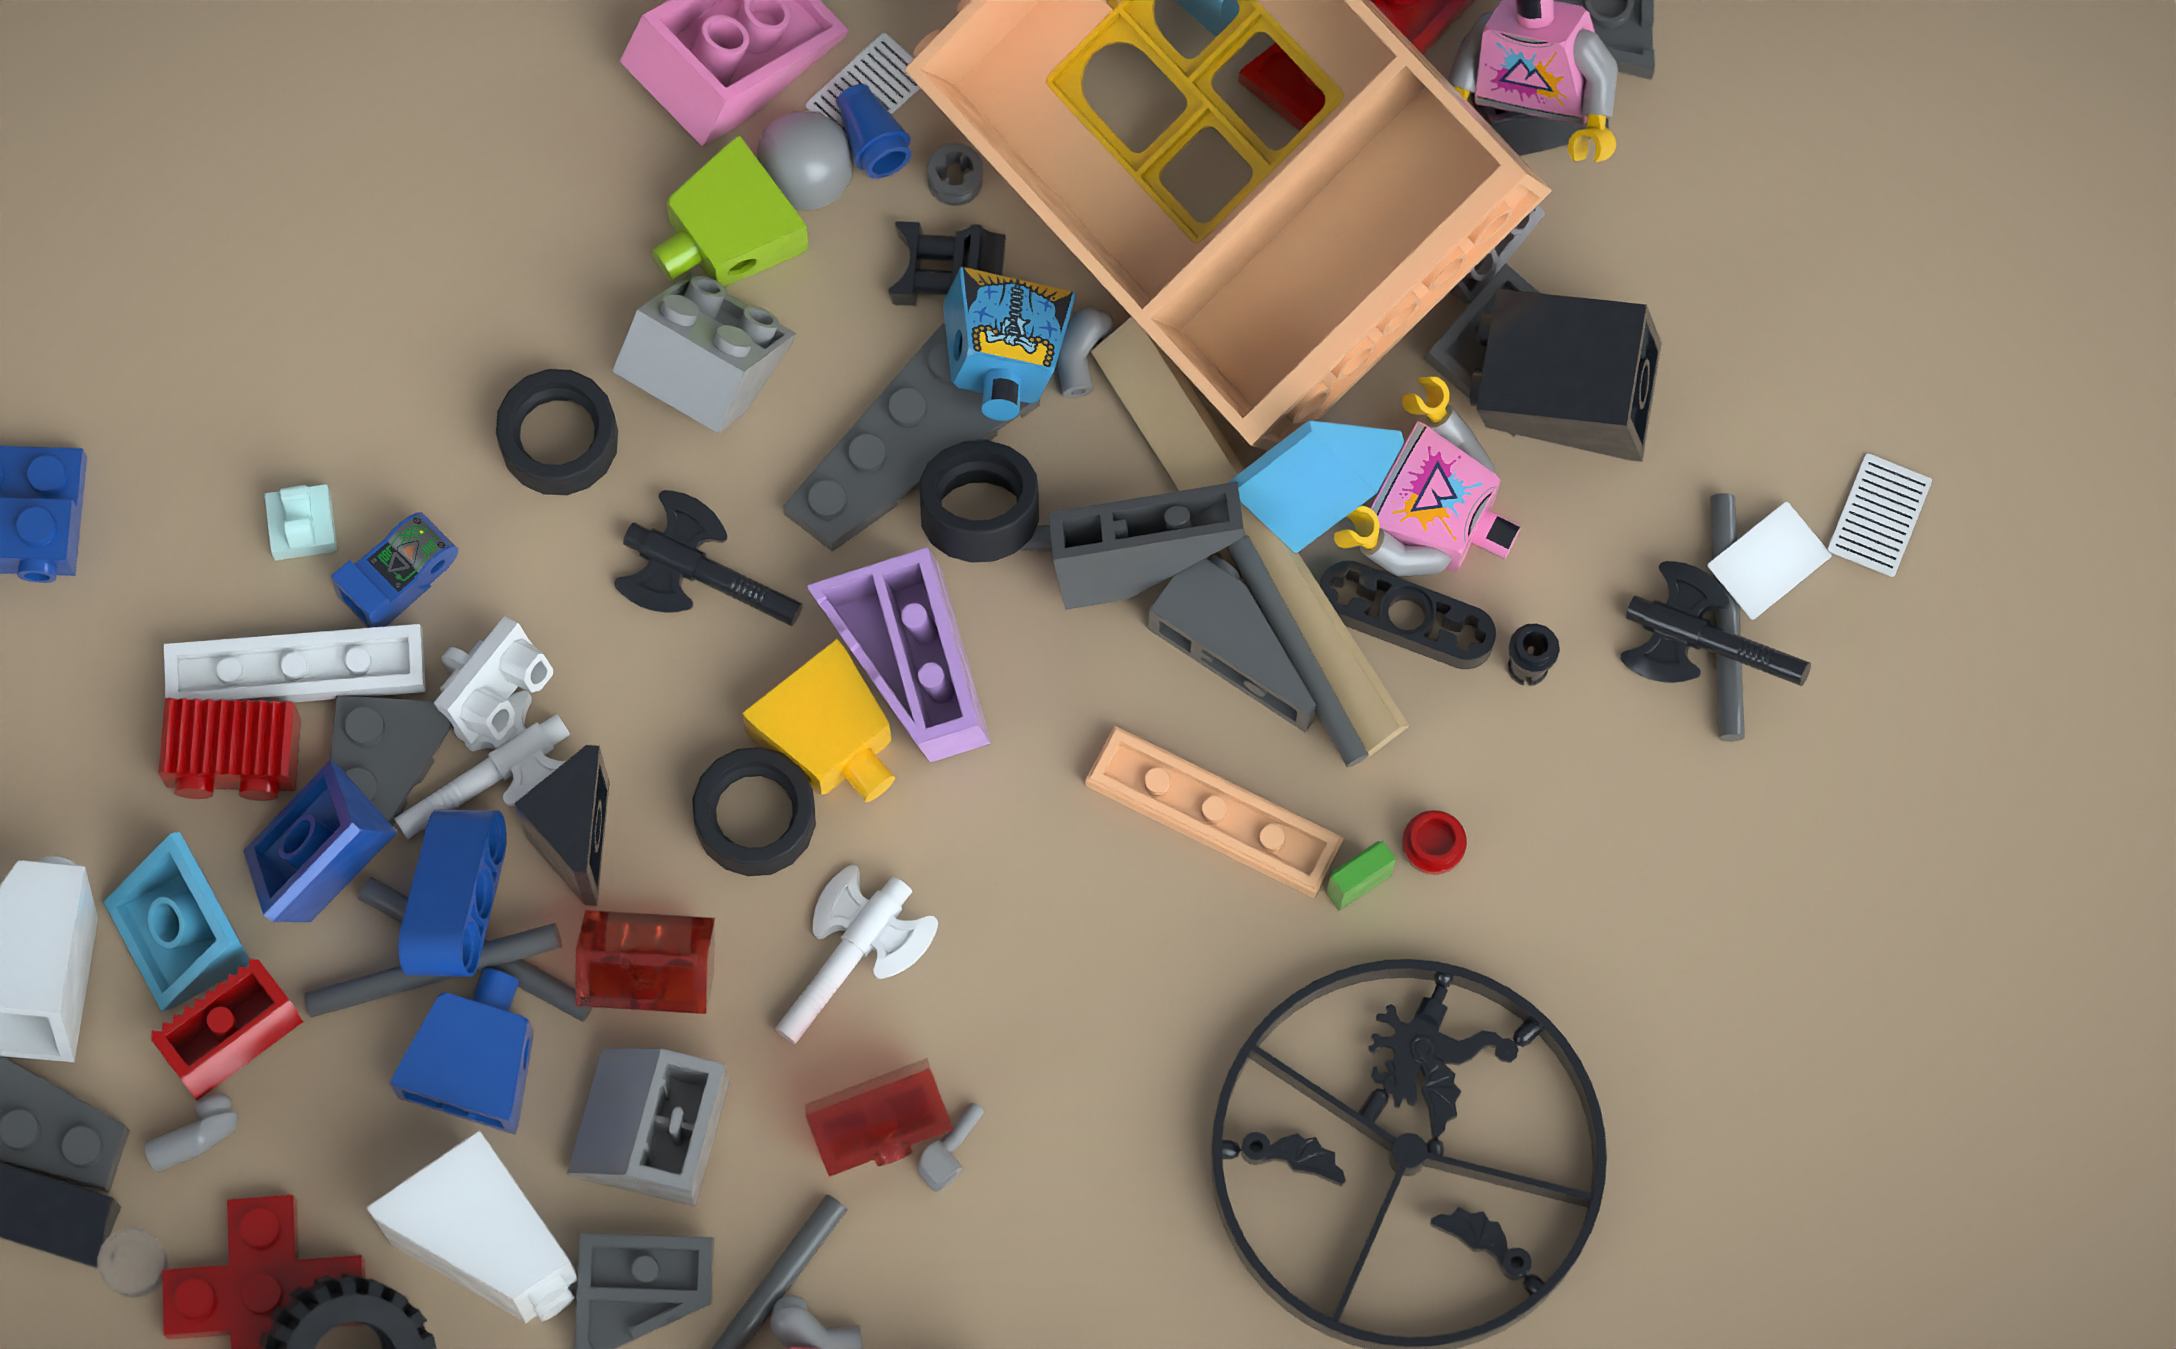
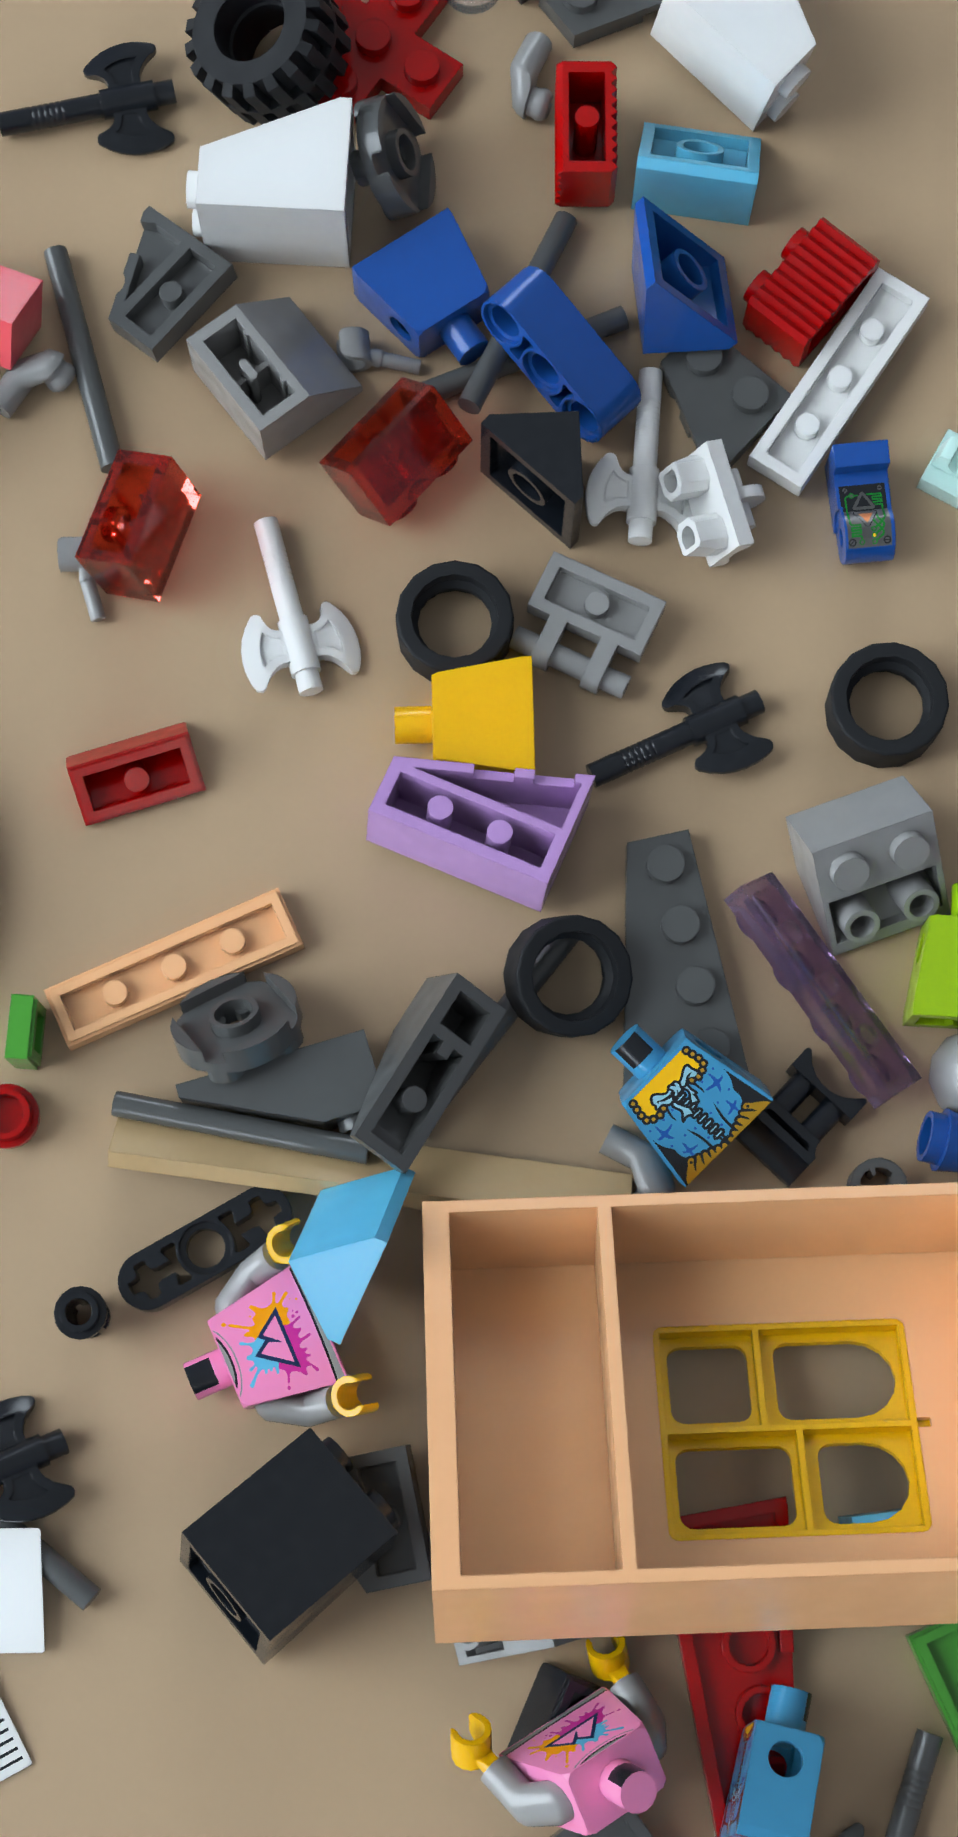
camera: 130 degrees right, 5 degrees up
(372, 1168) = (391, 157): none -> dark grey plate
(572, 1082) = (355, 353): none -> light grey hand
(652, 712) = (594, 608): none -> light grey plate
(833, 315) = (822, 989): none -> clear purple plate
(1080, 973) = (135, 773): none -> red slope
(1250, 688) = (266, 1026): none -> dark grey plate

